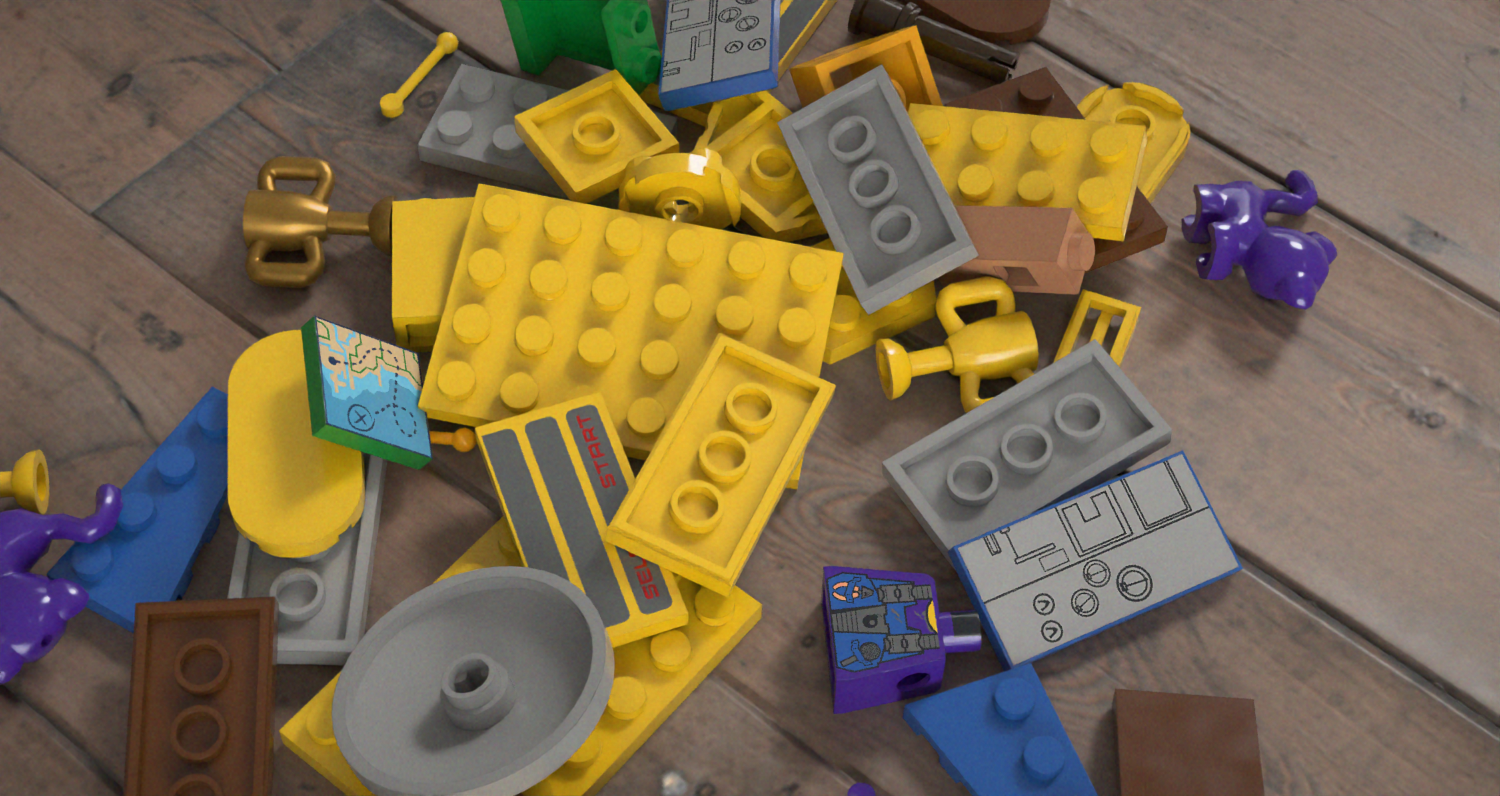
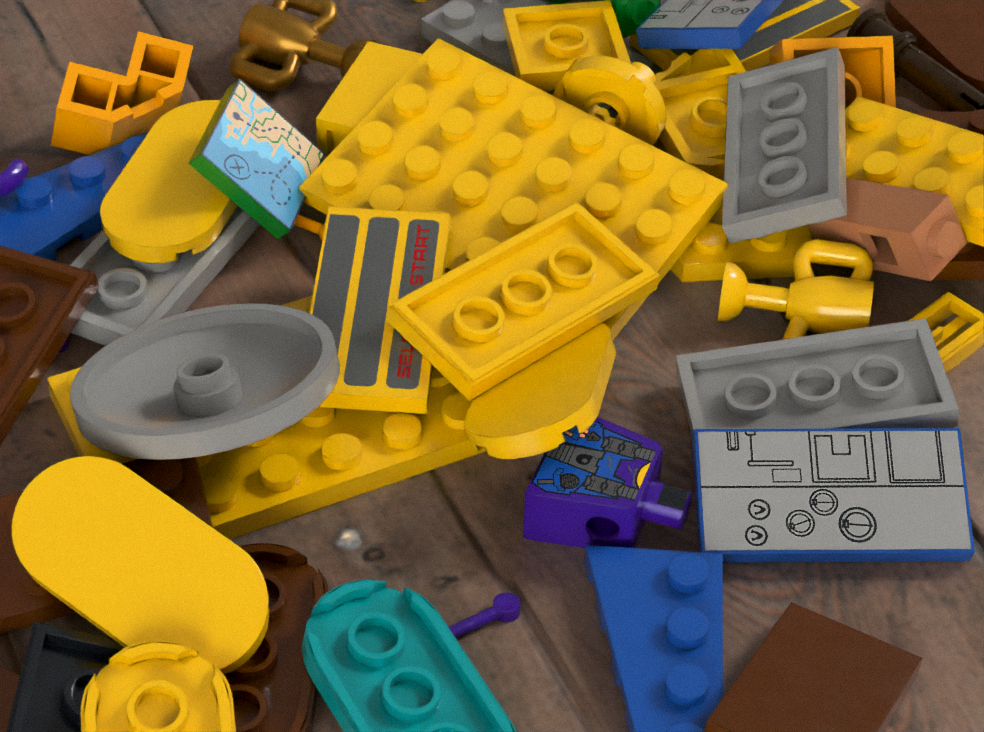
camera: 25 degrees right, 10 degrees down
(156, 386) = (108, 108): none -> light orange brick
(803, 571) = (544, 399): none -> yellow tile

